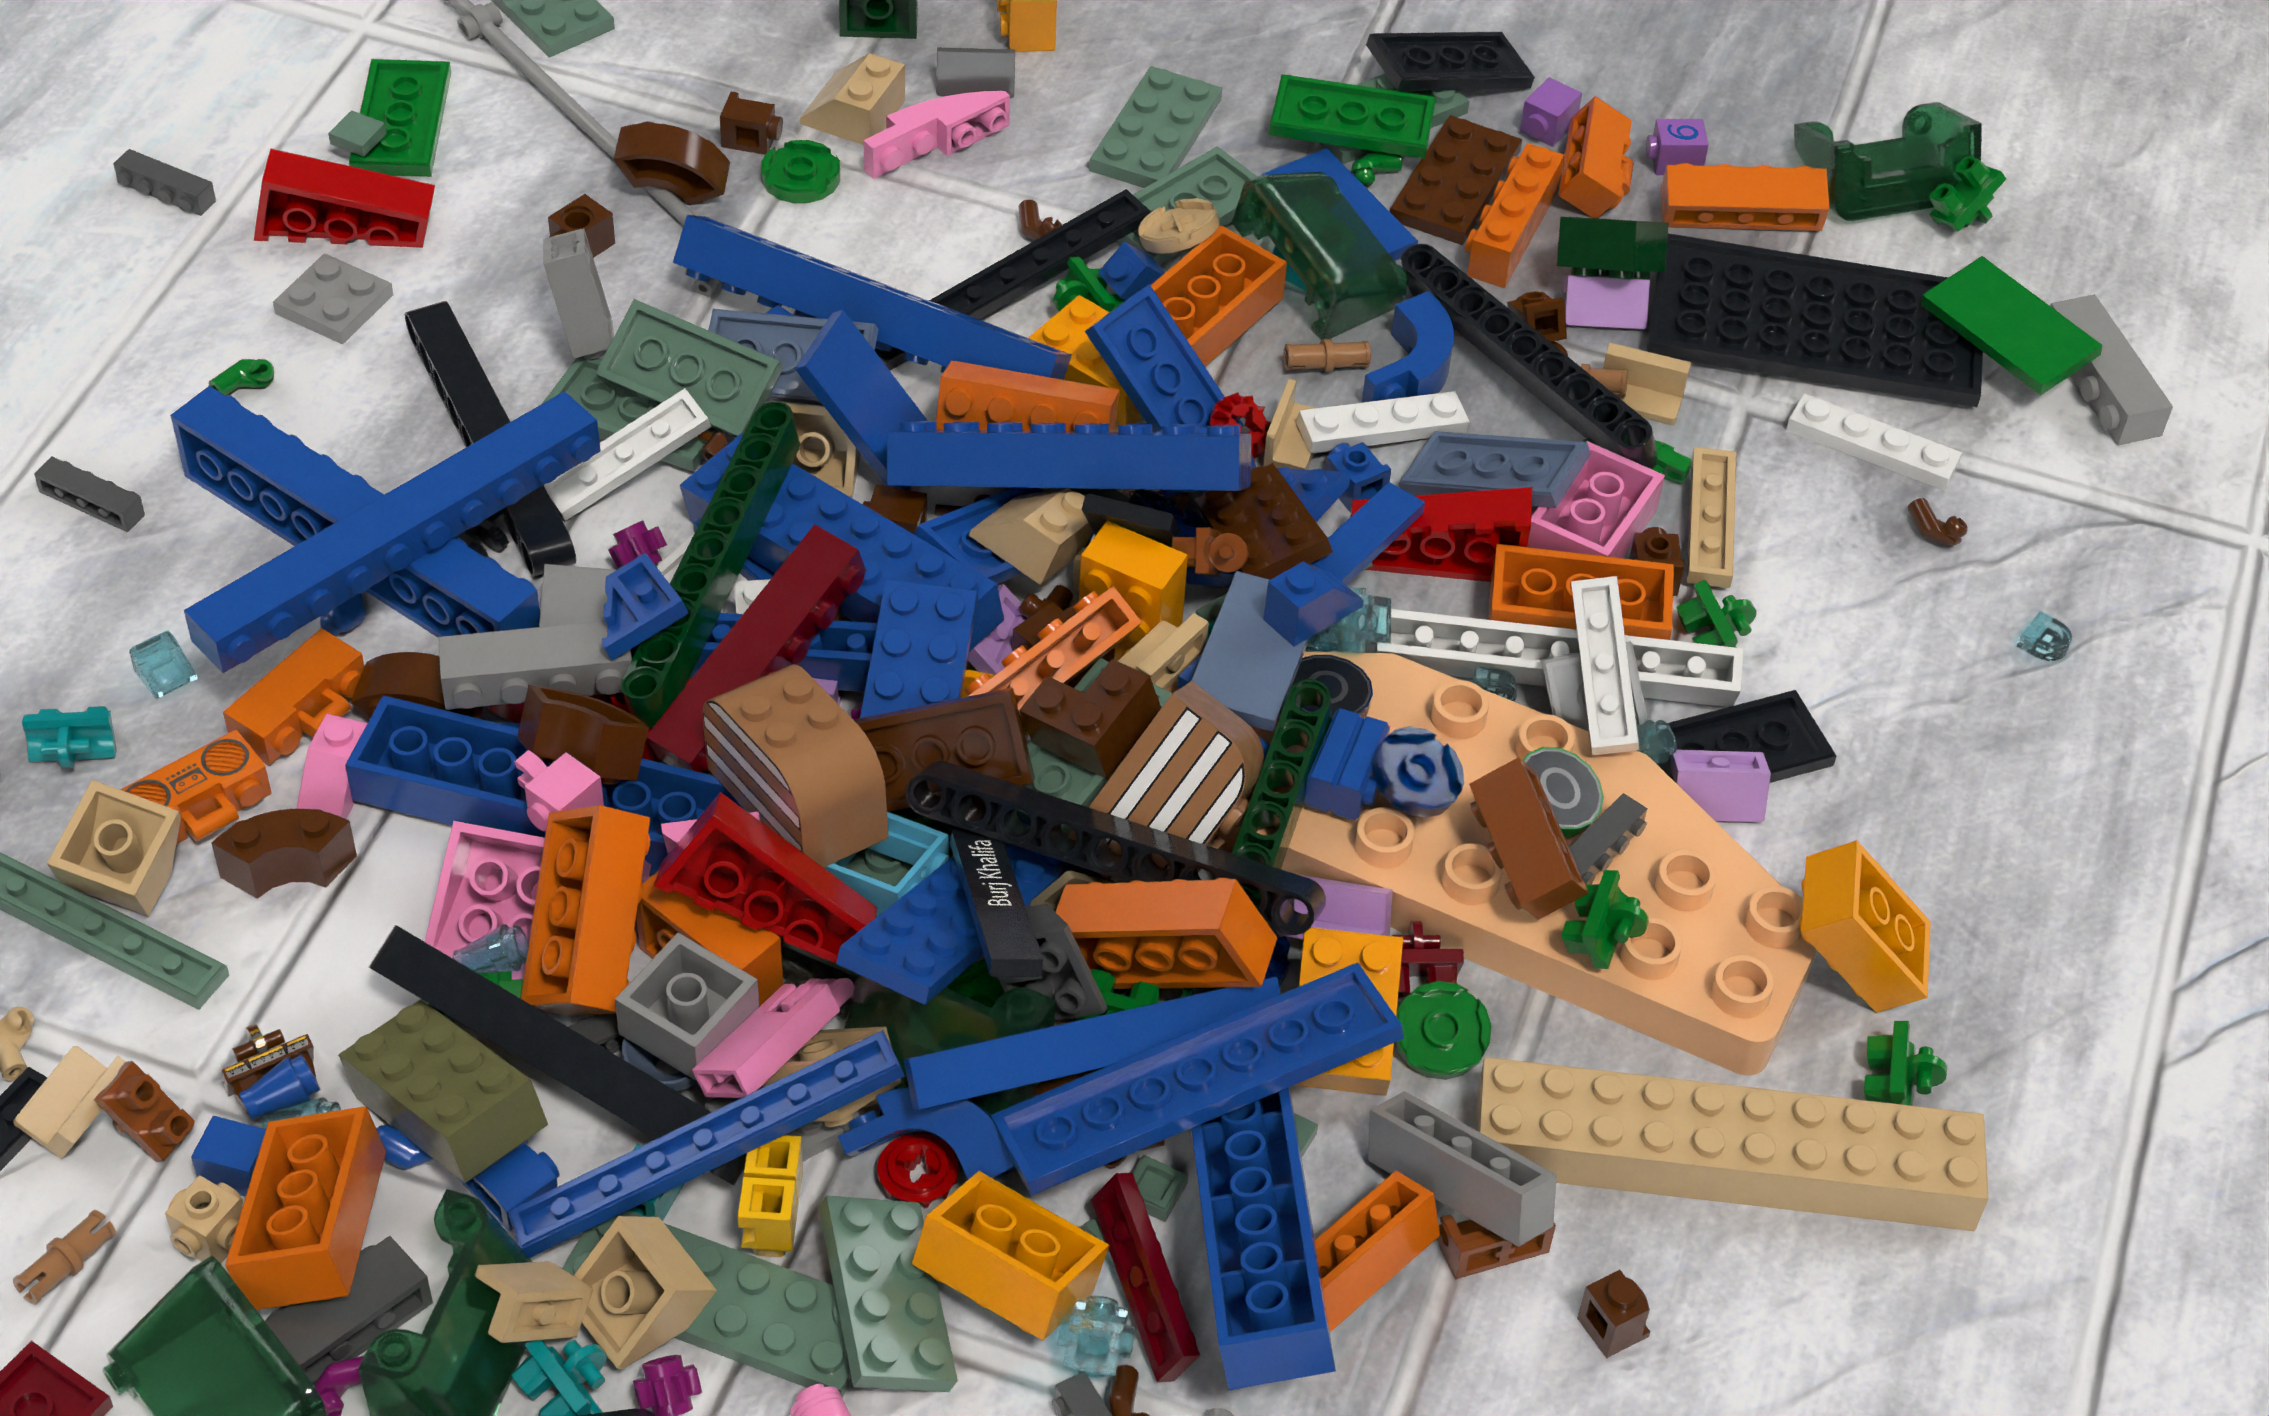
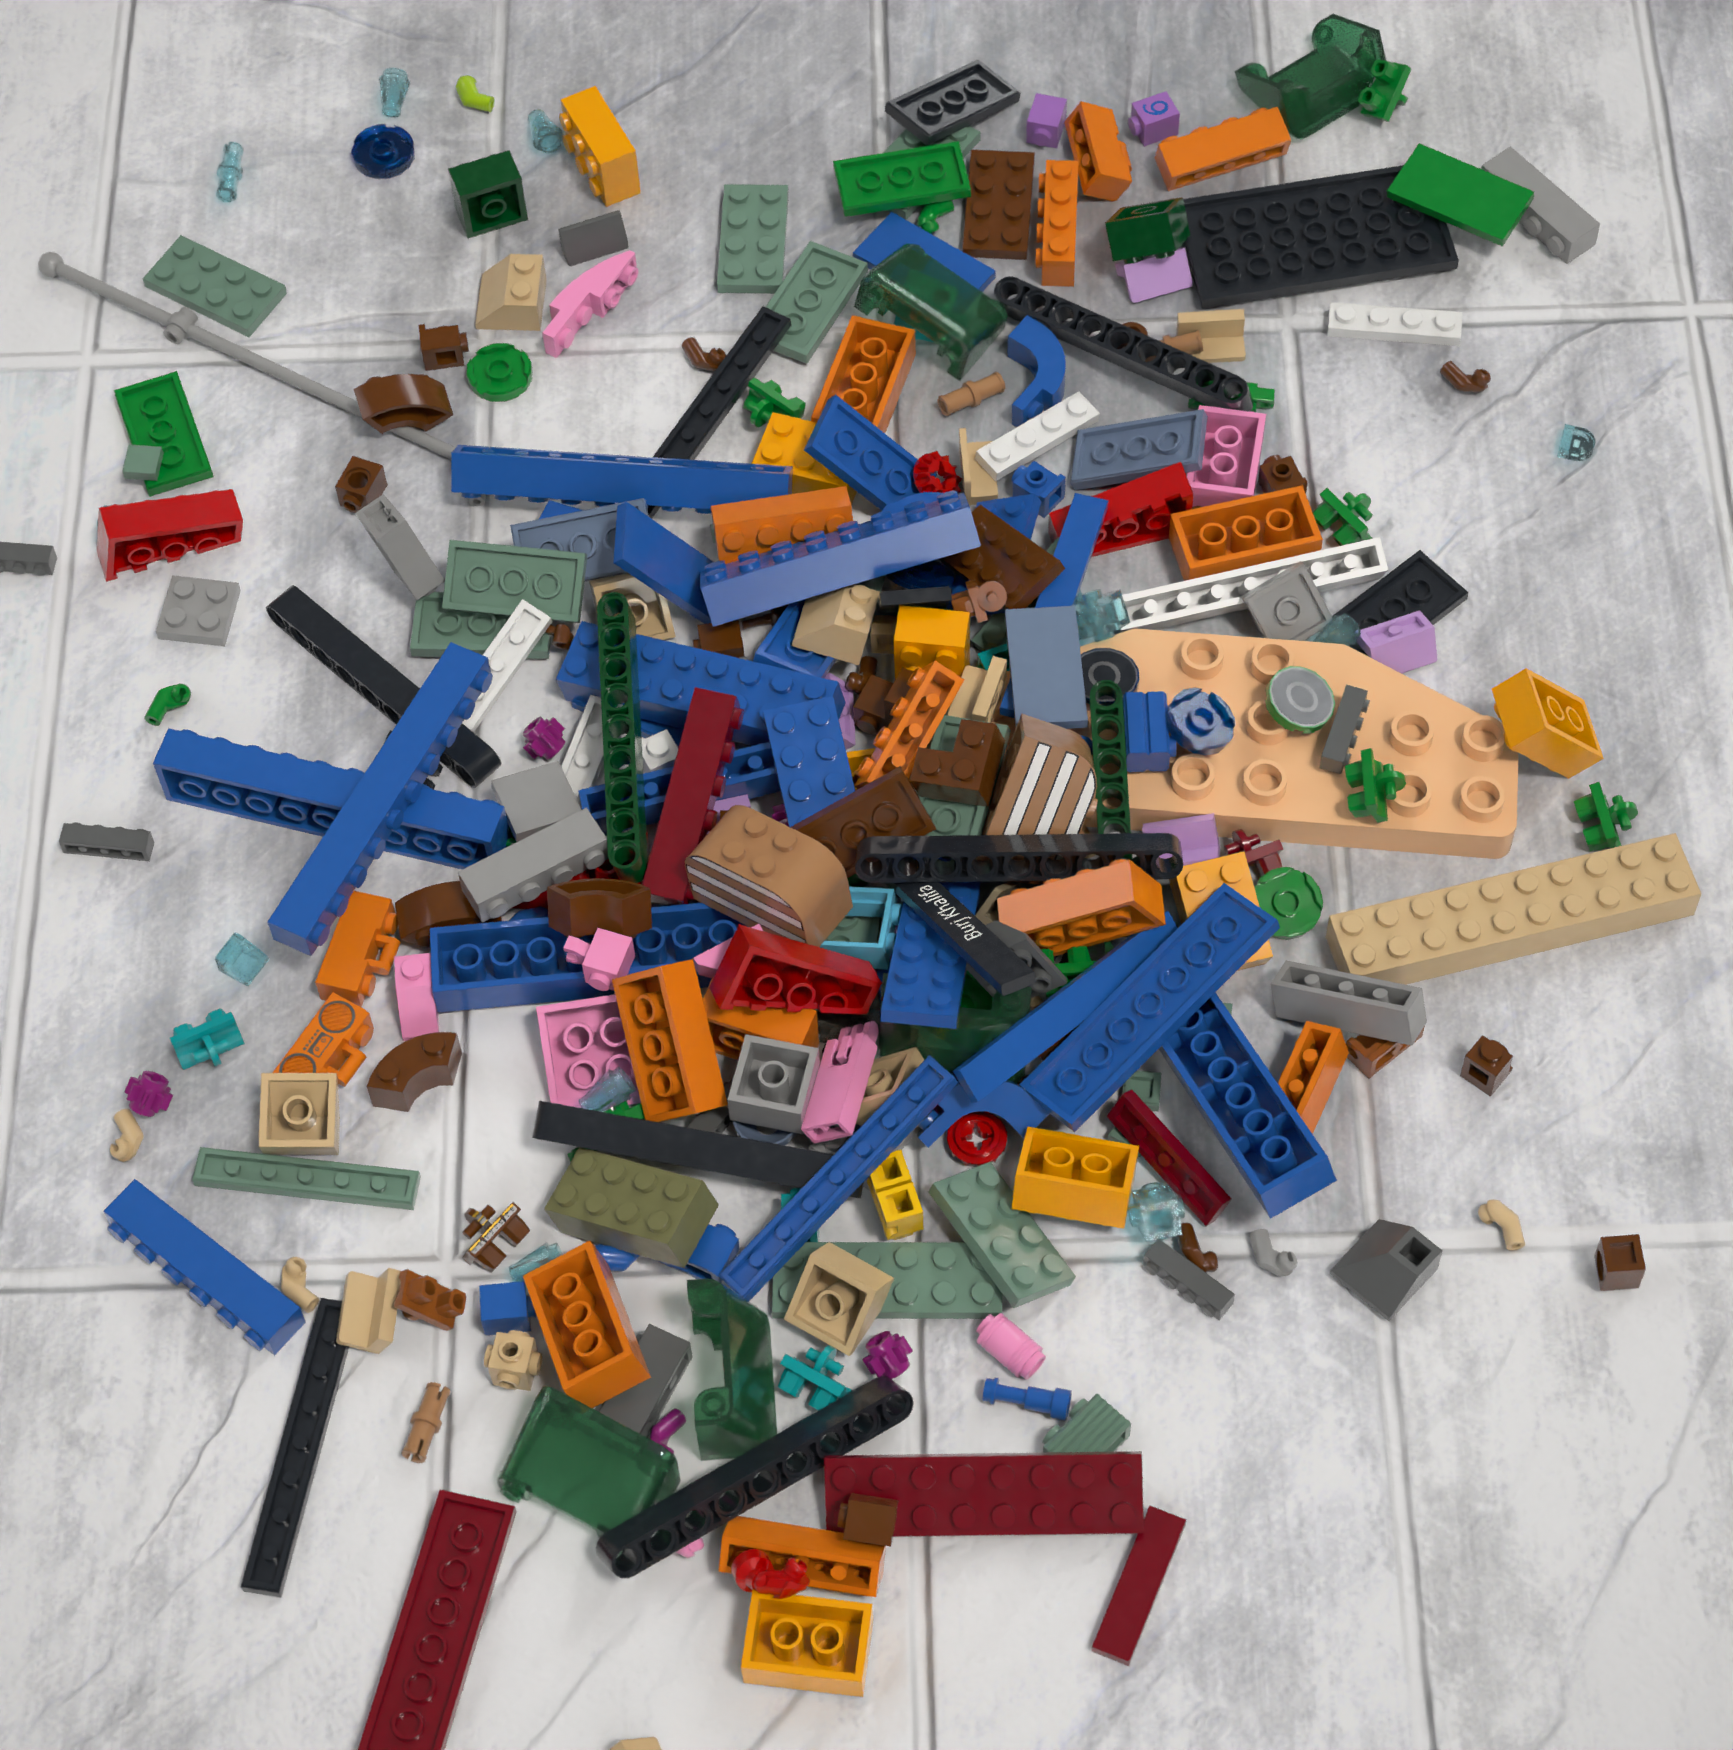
camera: 15 degrees left, 10 degrees up
(282, 1087) = (516, 1246): blue cone -> none
(535, 1301) = (782, 1330): tan panel -> none
(638, 605) = (594, 795): blue wing -> none
(1130, 270) = (802, 378): blue brick -> none
(1178, 228) = (819, 326): tan tile -> none
(1307, 602) = (1071, 619): blue slope -> none
(1496, 682) = (1210, 624): clear light blue tile -> none
(1526, 839) = (1298, 747): dark orange brick -> none
(1542, 313) = (1112, 301): reddish brown brick -> none
(1604, 666) = (1293, 589): white plate -> none
(1711, 517) = (1306, 430): tan plate -> none

